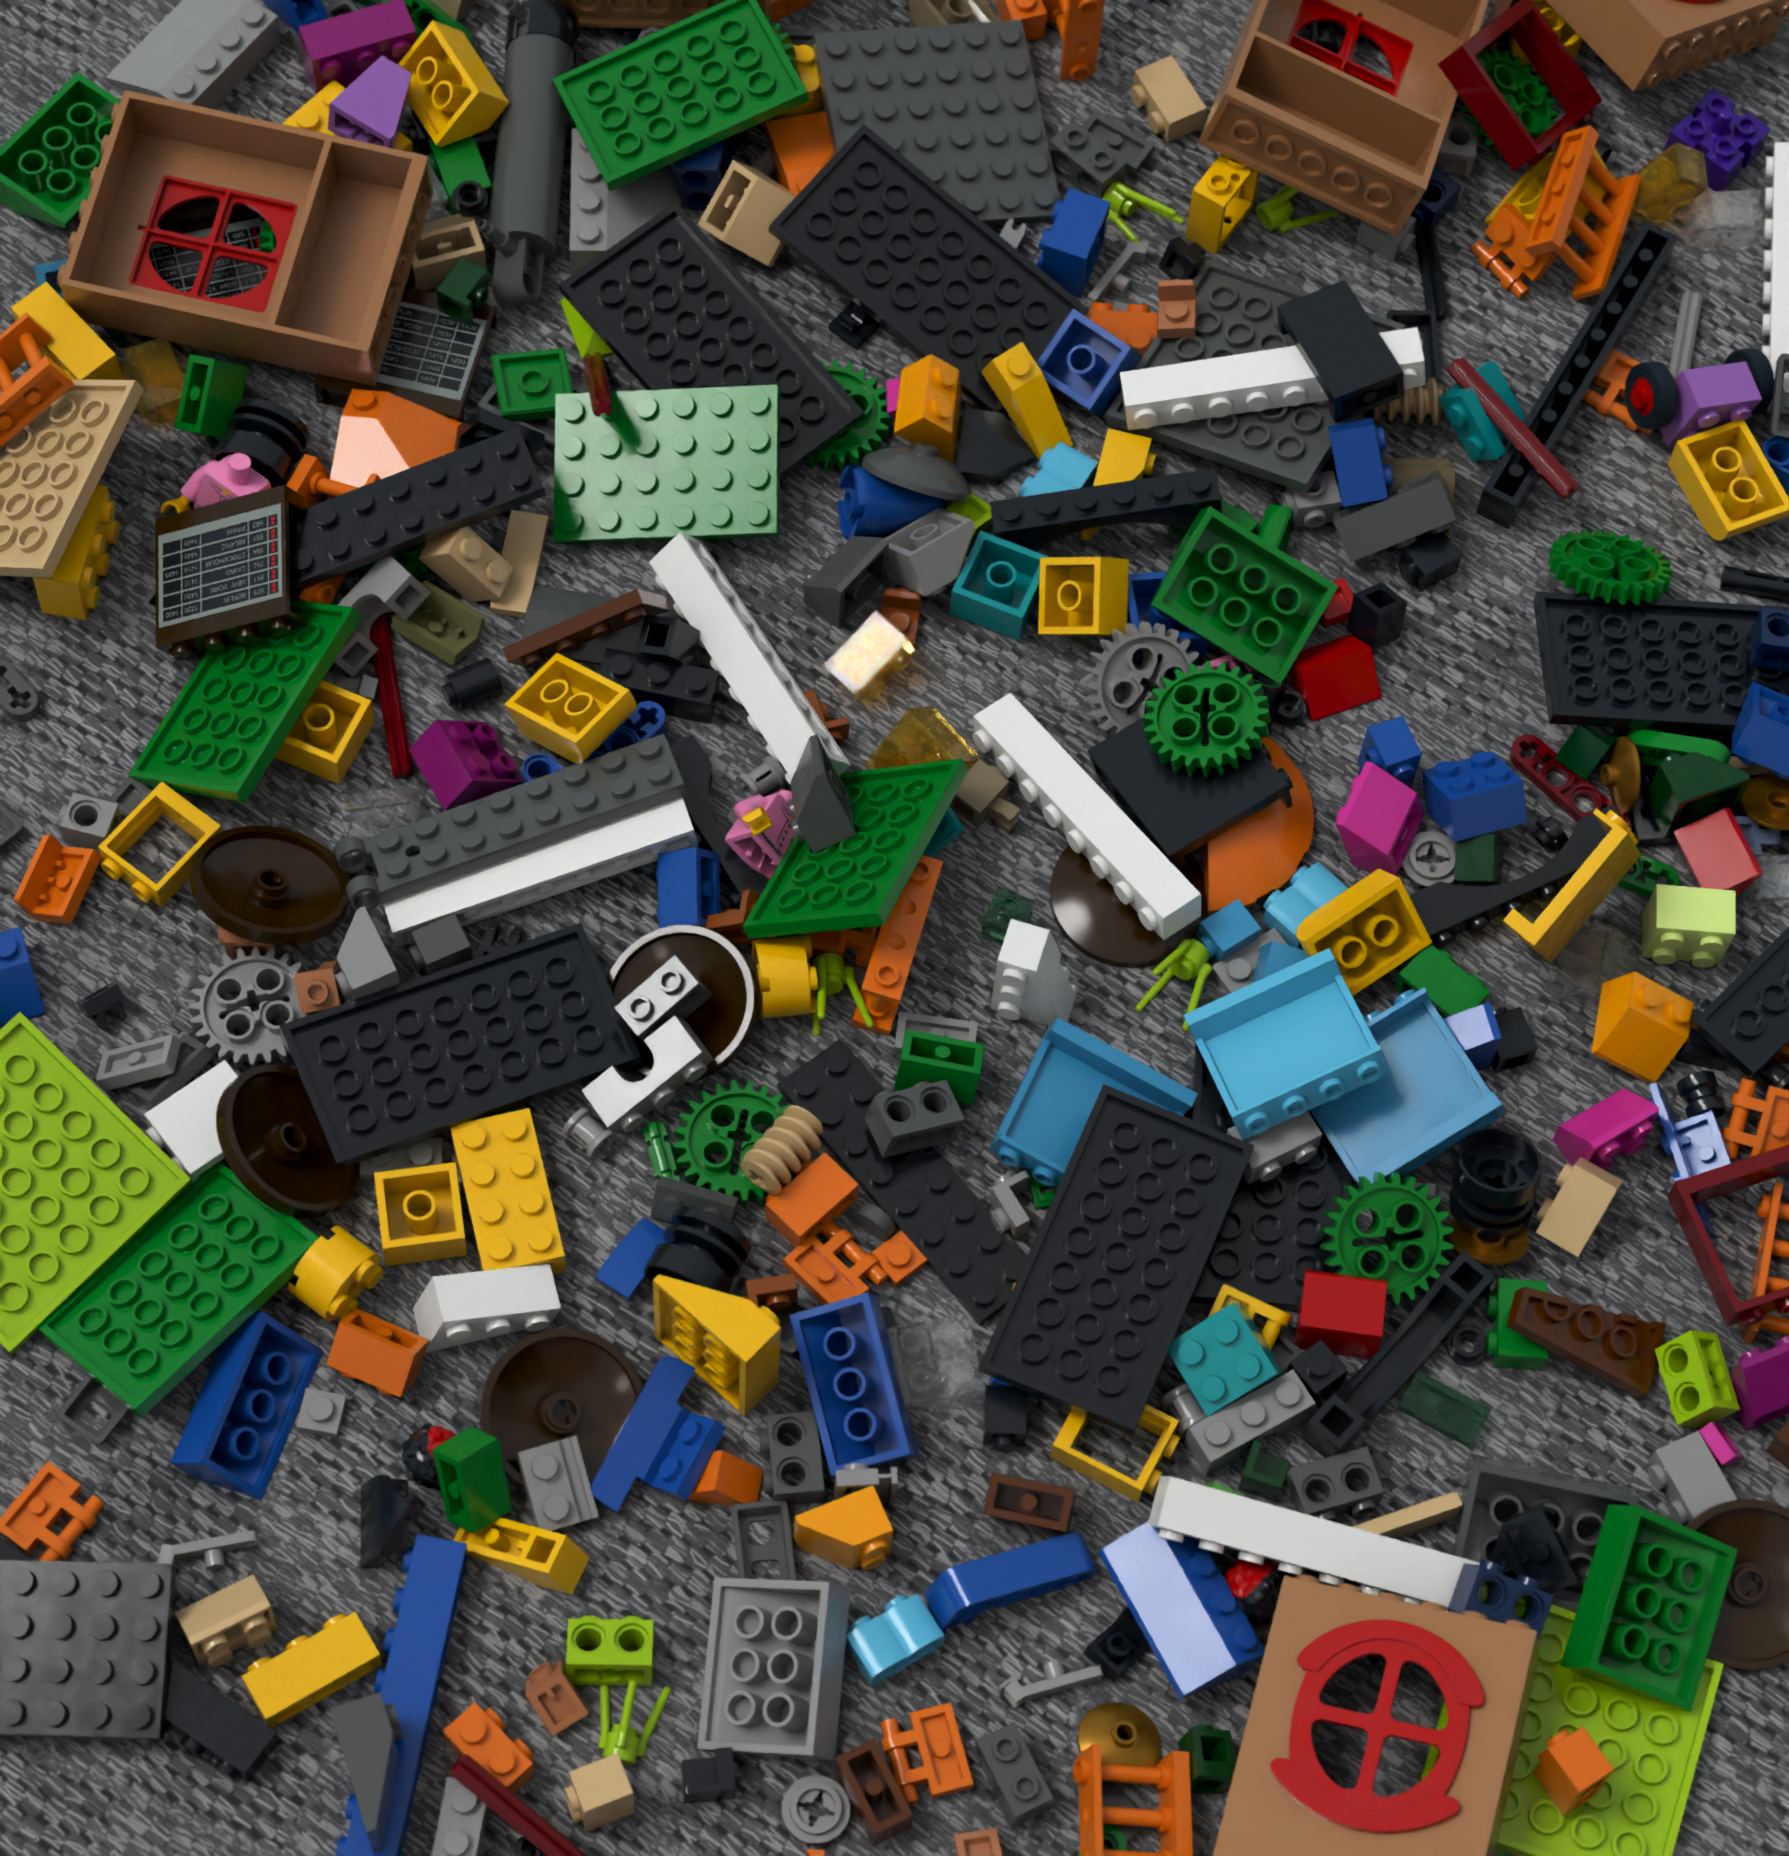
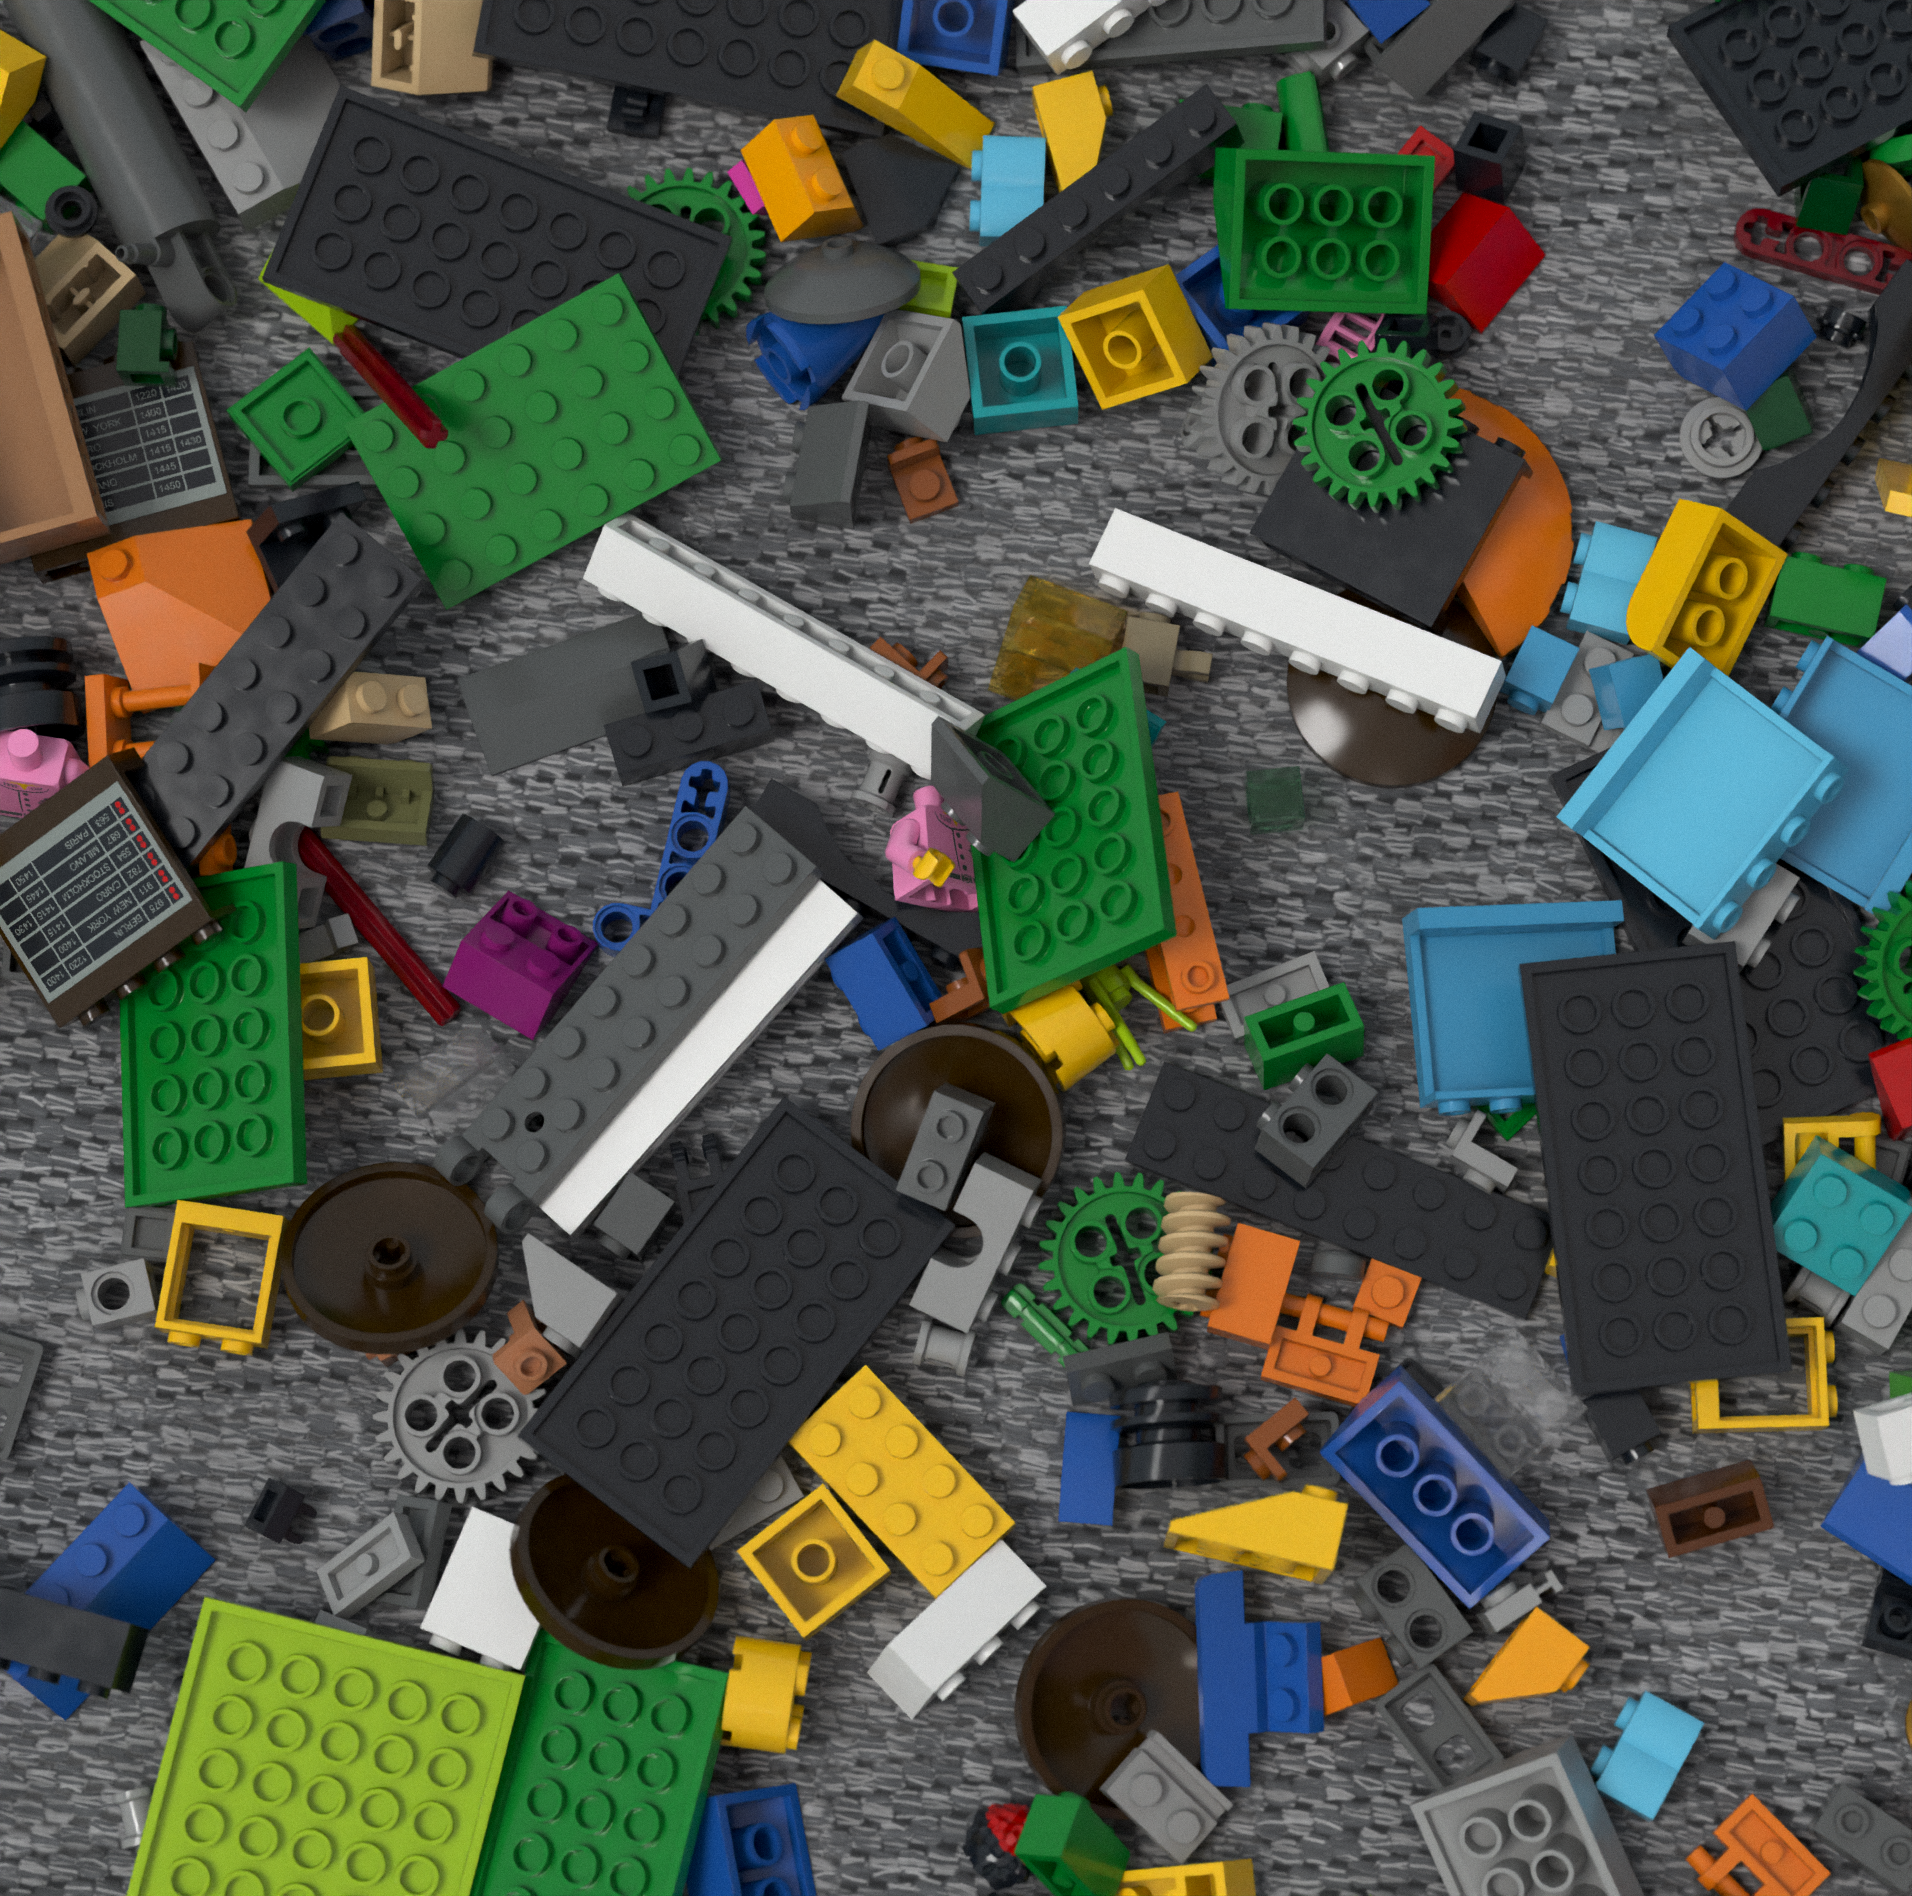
camera: 20 degrees left, 15 degrees up
(56, 881) = (128, 1391): orange bracket -> none
(321, 1412) = (841, 1859): light grey plate -> none
(377, 1352) = (867, 1763): orange brick -> none
(523, 551) = (421, 653): tan tile -> none
(569, 708) = (609, 830): yellow brick -> none
(585, 627) = (573, 706): reddish brown wing -> none
(869, 658) = (921, 556): clear yellow brick -> none
(1007, 1578) = (1738, 1614): blue beam -> none
(1030, 977) = (1352, 868): white wedge -> none
(1055, 1682) = (1851, 1698): light grey piece -> none
(1186, 963) = (1512, 737): lime plant -> none
(1379, 820) = (1641, 430): dark pink slope -> none
(1392, 749) = (1609, 343): blue brick -> none

